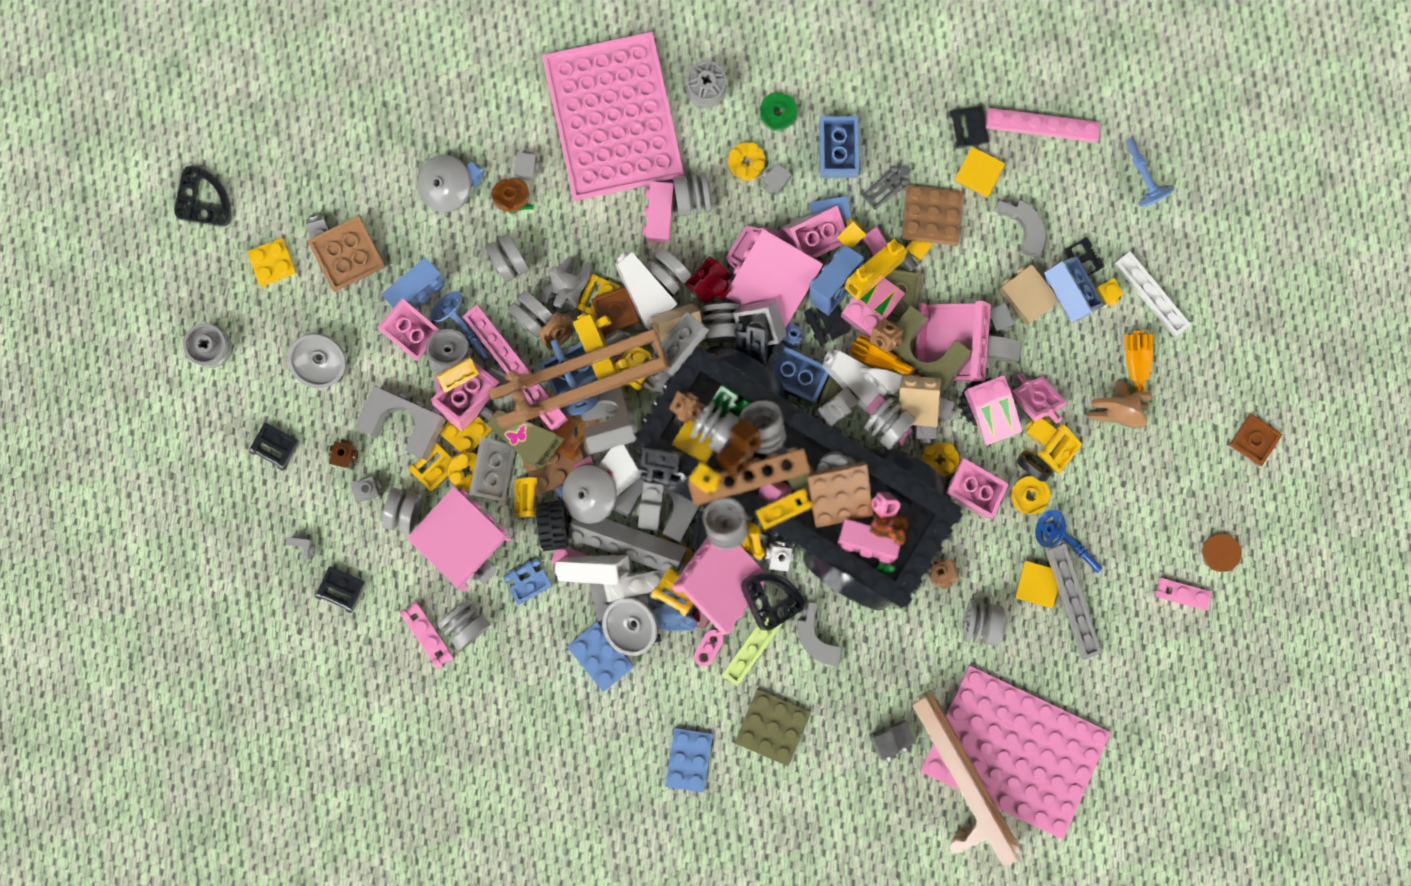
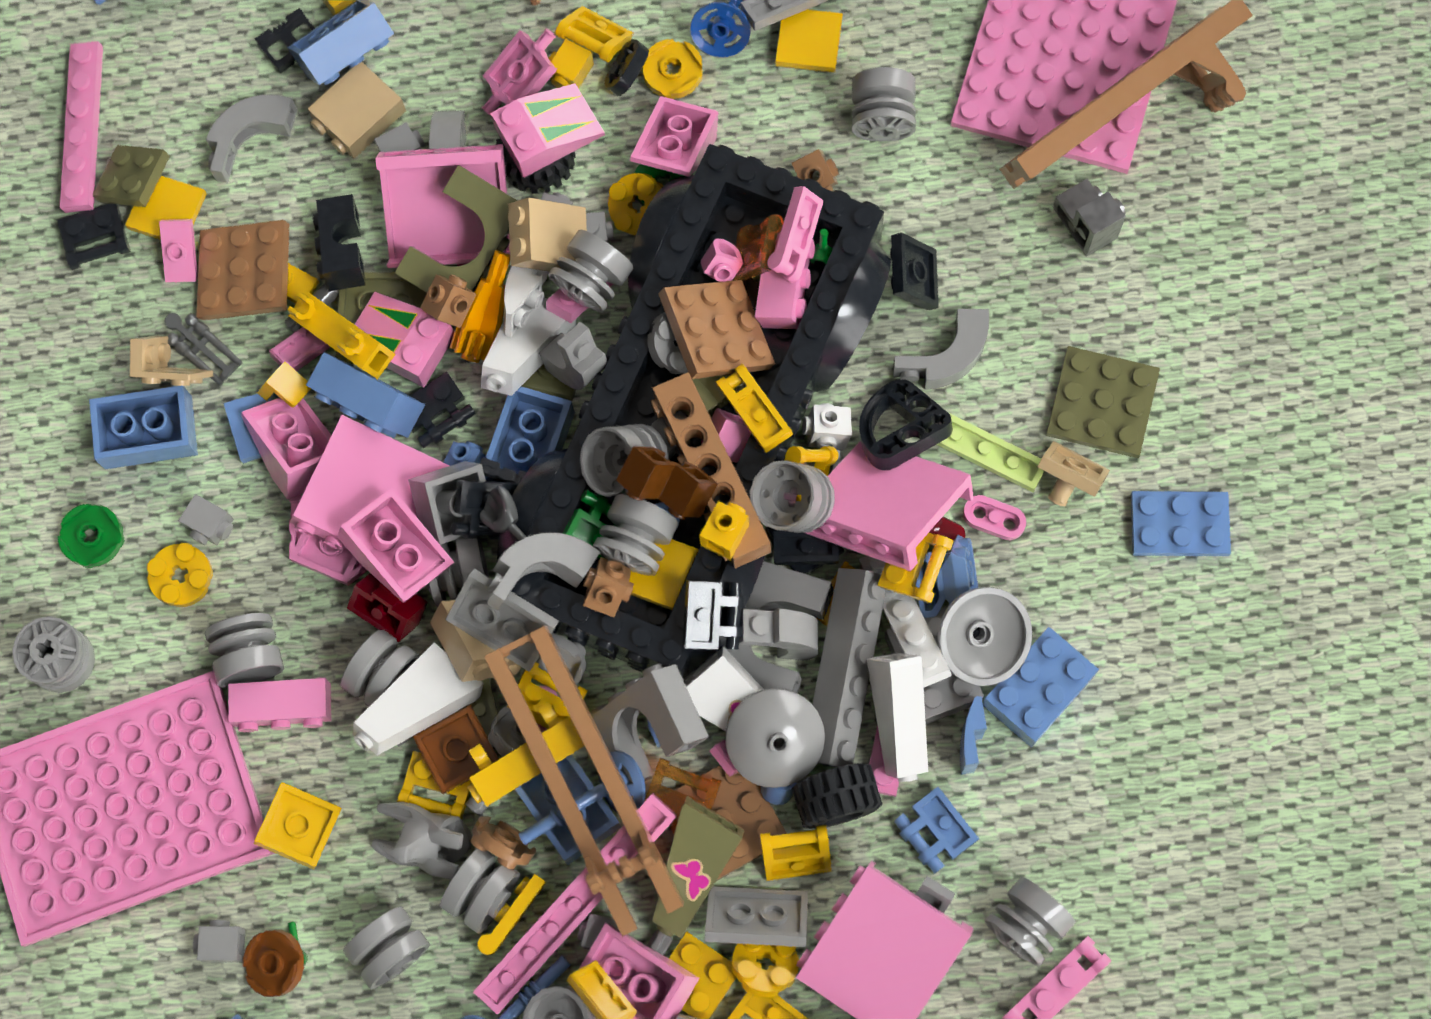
camera: 90 degrees left, 10 degrees down
(516, 330) = (510, 915): none -> yellow plate
(580, 611) = (973, 730): none -> medium blue slope
(585, 215) = (297, 825): none -> yellow plate
(710, 380) = (542, 552): none -> light grey arch
(728, 699) = (1072, 471): none -> tan tile
(734, 287) = (394, 546): none -> bright pink slope
(742, 350) = (501, 513): none -> dark grey piece
(870, 624) = (914, 271): none -> black plate
(873, 155) = (150, 360): none -> tan bracket
(890, 551) = (796, 234): none -> bright pink plate
(949, 177) = (178, 250): none -> bright pink plate
(955, 274) = (340, 263): none -> black arch
(1003, 152) = (131, 175): none -> olive plate

